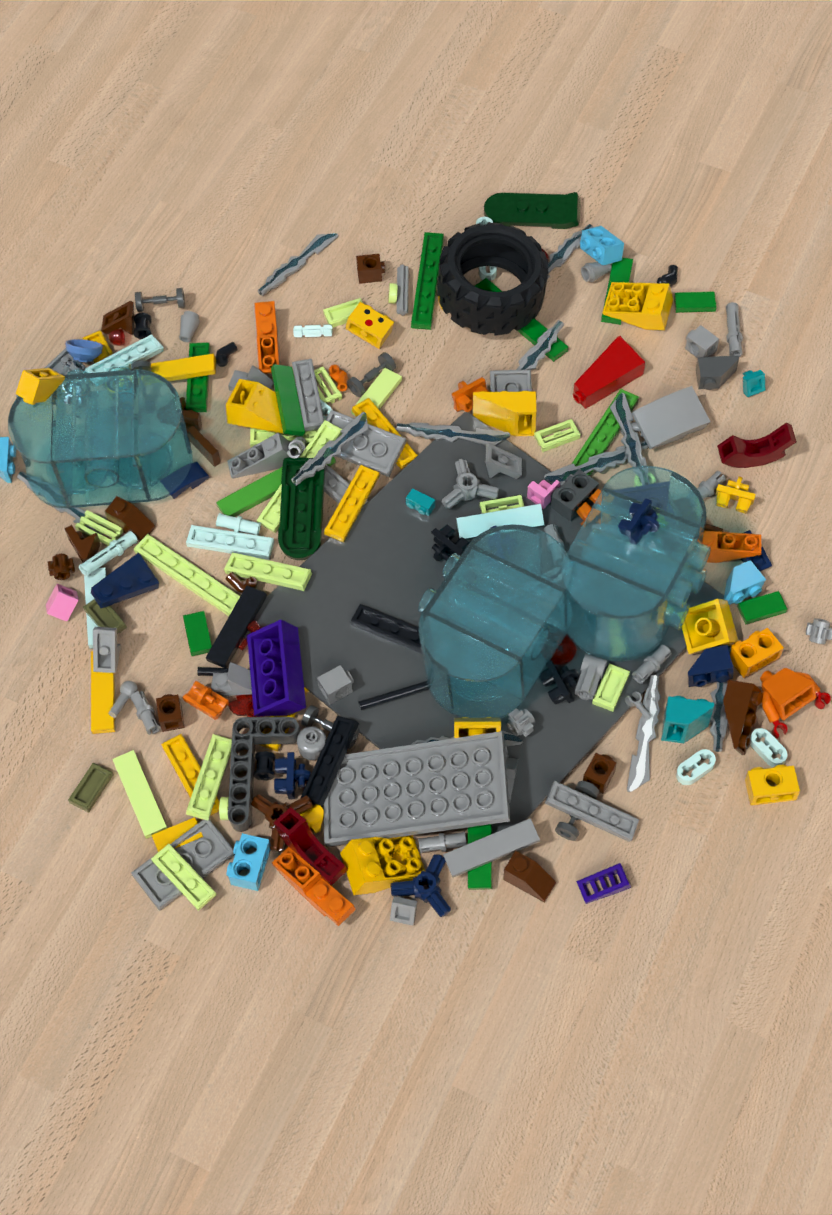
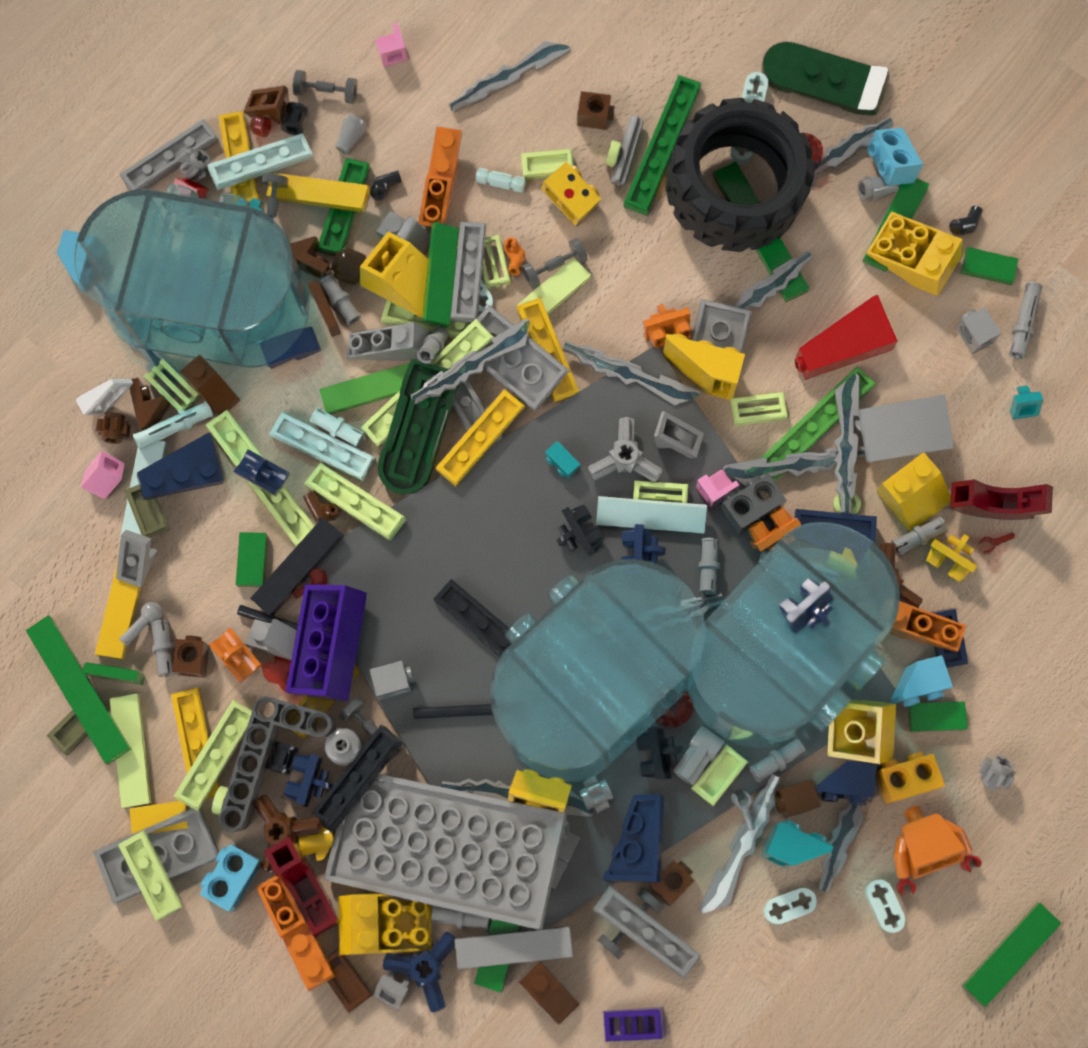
camera: 15 degrees right, 15 degrees up
(38, 384) = (124, 200): yellow slope -> none
(48, 544) = (103, 397): none -> white slope
(83, 349) = (212, 136): medium blue piece -> none
(85, 759) = (78, 690): none -> green tile
(110, 740) = (113, 673): none -> green tile
(190, 565) = (262, 472): none -> dark blue hips
(203, 264) = (392, 47): none -> bright pink panel
(214, 413) = (347, 265): none -> dark brown head
(215, 438) = (339, 299): none -> light grey pin
(366, 917) = (347, 982): none -> reddish brown tile
(566, 748) = (640, 845): none -> dark blue wing
(676, 685) = (797, 799): none -> reddish brown brick
(693, 458) = (915, 492): none -> yellow slope
(715, 371) = (981, 374): dark grey slope -> none
(740, 708) = (866, 849): reddish brown slope -> none
(759, 479) = (996, 541): none -> clear red hand
(762, 793) = (891, 959): yellow brick -> none

